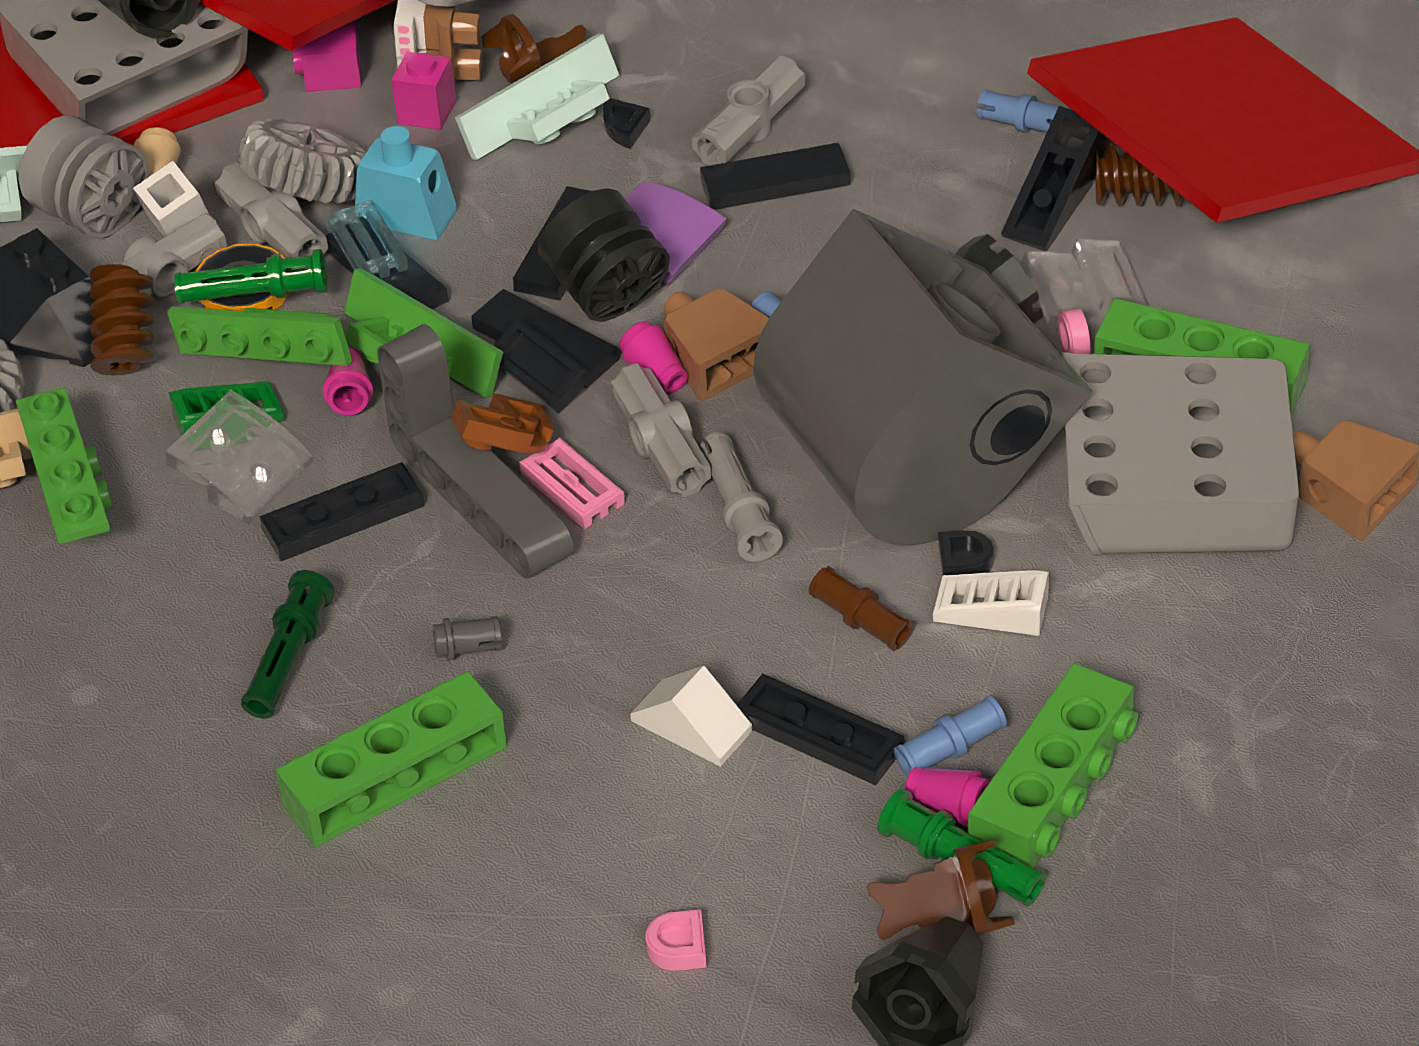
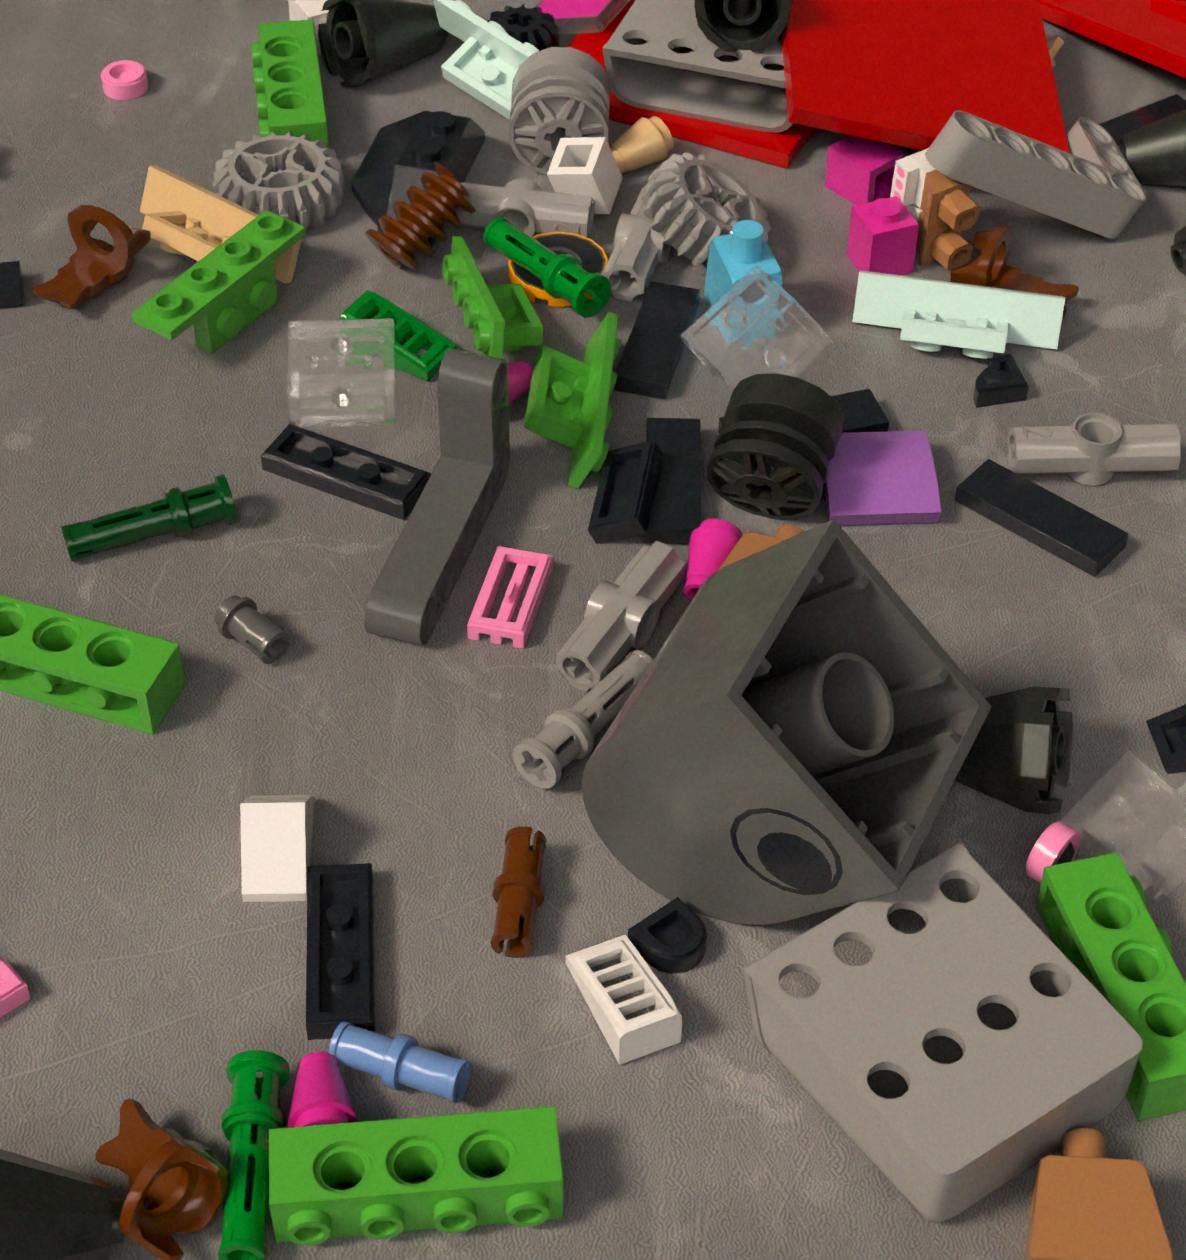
camera: 50 degrees right, 0 degrees up
(377, 263) = (673, 310): clear light blue tile -> none
(472, 208) = (755, 332): none -> clear slope
(505, 424) = (510, 518): dark orange plate -> none

